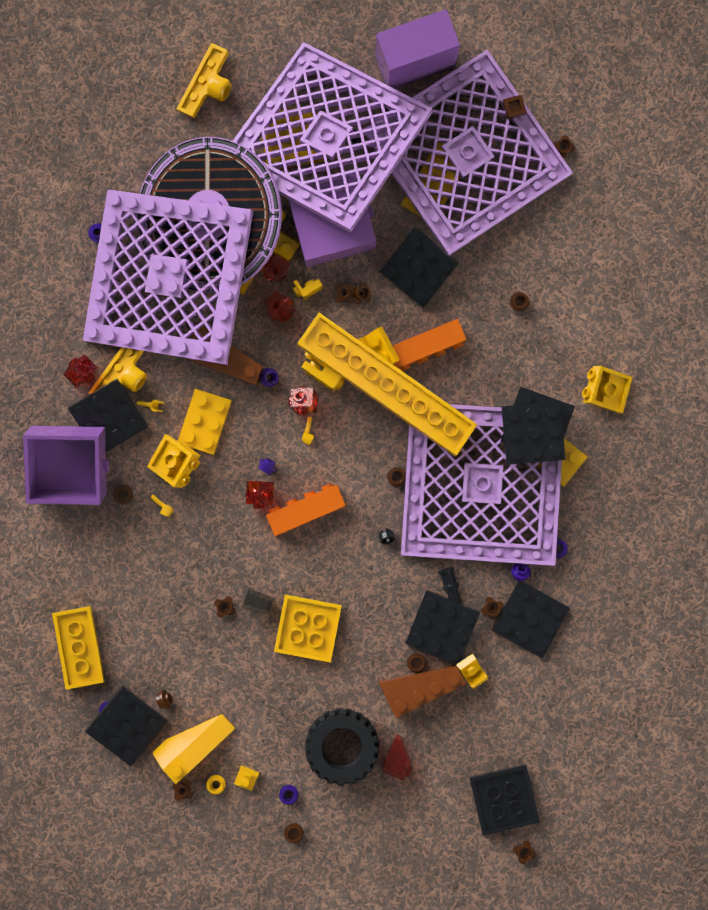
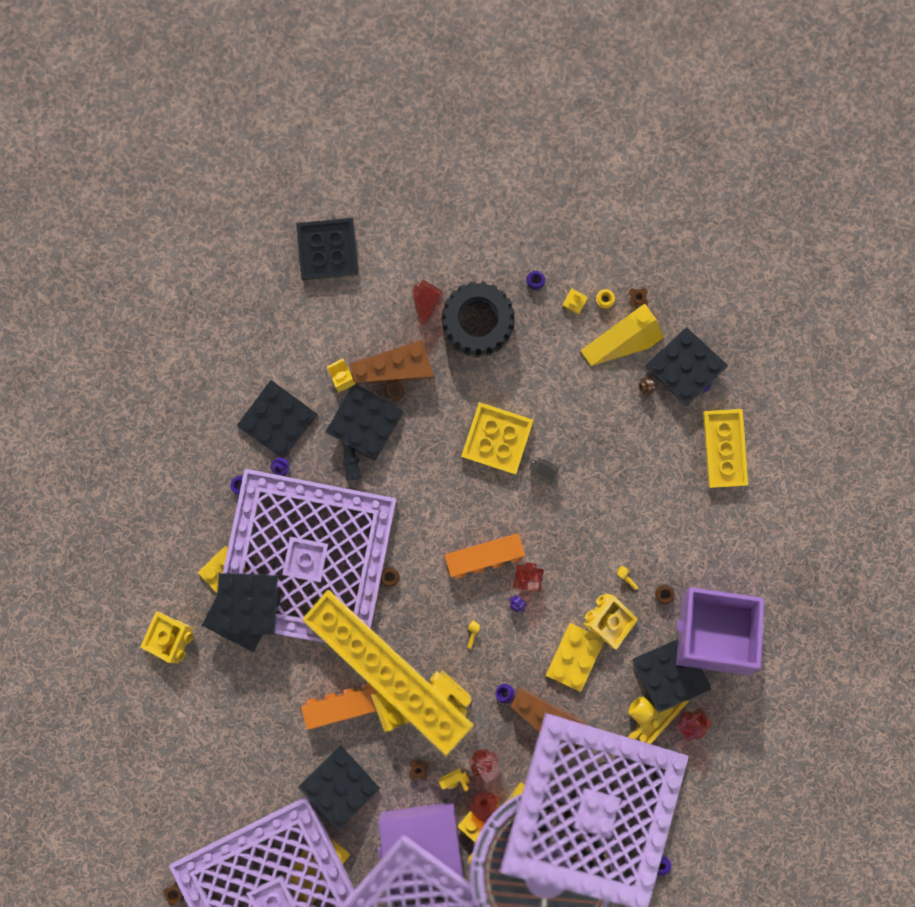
camera: 170 degrees left, 0 degrees up
(152, 405) = (625, 680): yellow hand -> none
(220, 603) = (581, 469): reddish brown plate -> none
(293, 833) = (535, 243): reddish brown plate -> none
(303, 400) = (473, 665): clear red brick -> none
(366, 293) = (396, 768): reddish brown plate -> none
(386, 537) = (407, 518): black hinge -> none
(497, 606) = (313, 430): reddish brown plate -> none
(519, 295) = (240, 744): reddish brown plate -> none
(530, 854) = (314, 192): reddish brown plate -> none

